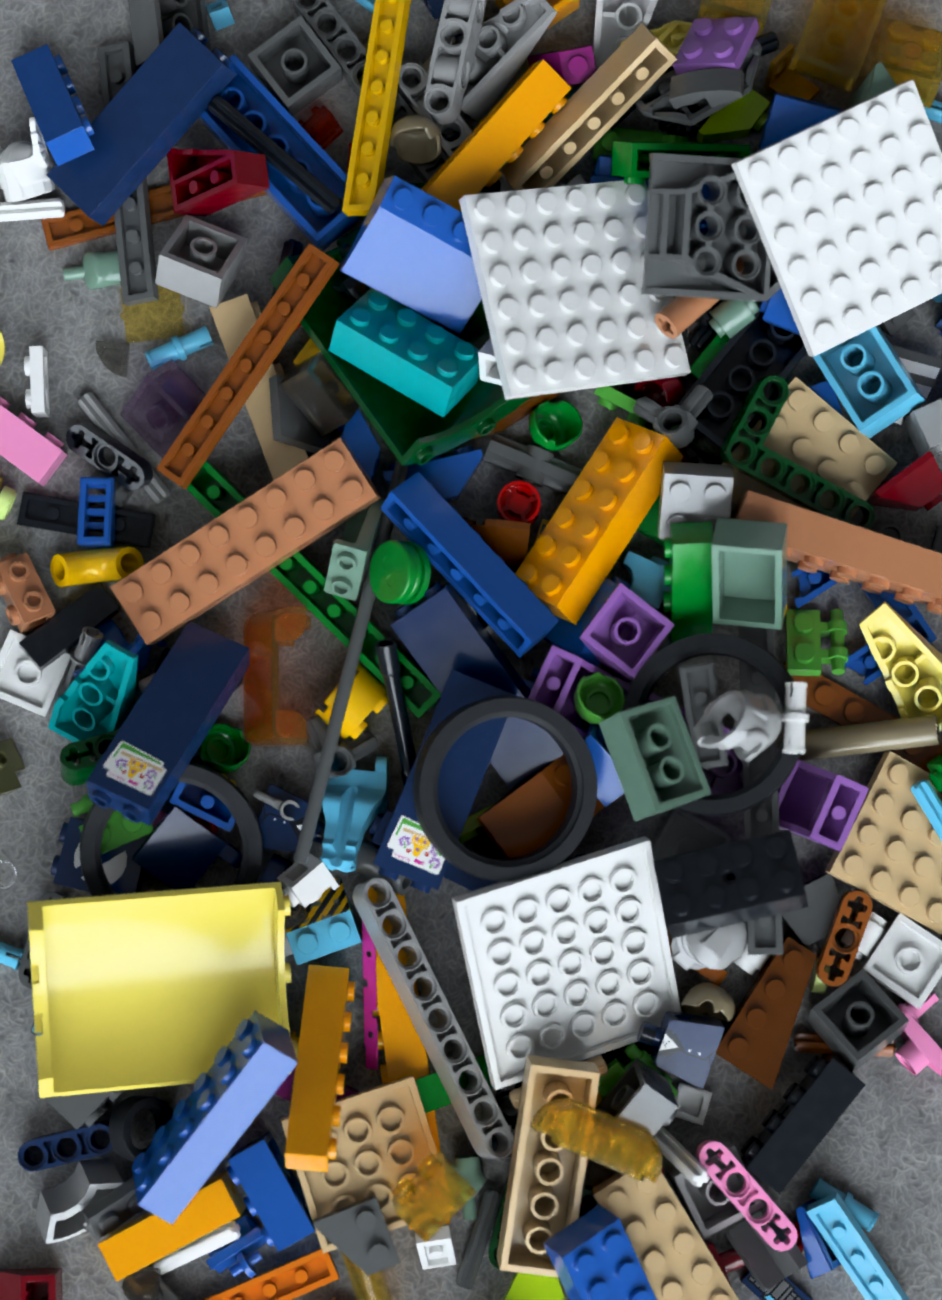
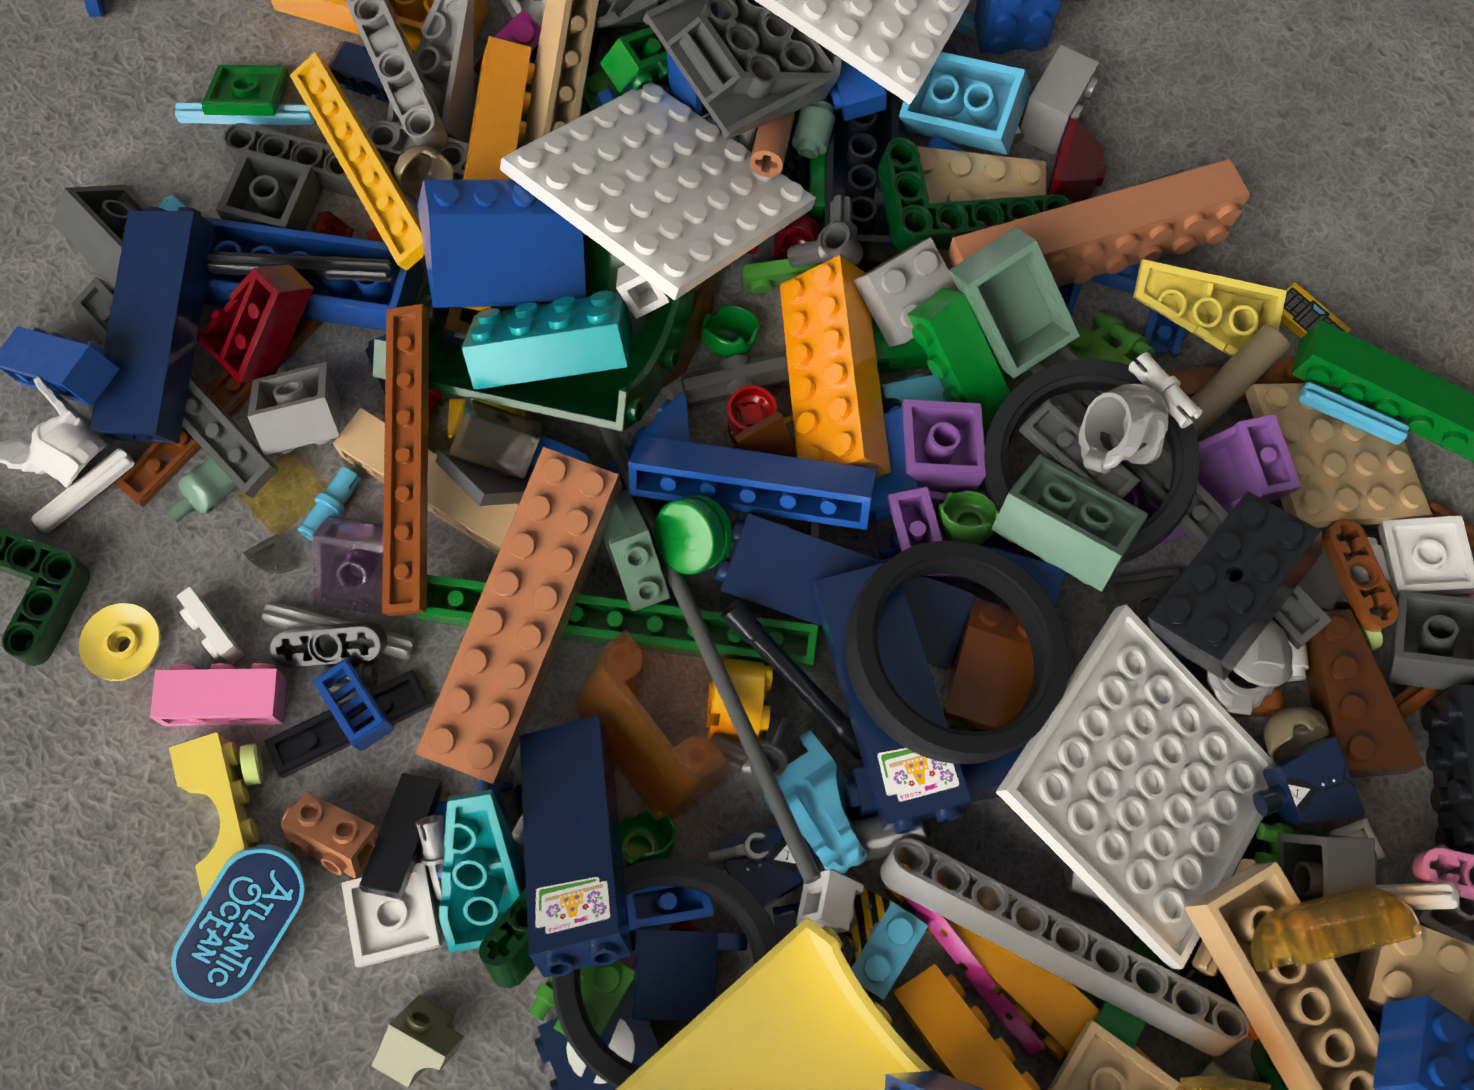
camera: 40 degrees left, 15 degrees down
(94, 565) = (384, 759): yellow cylinder -> none

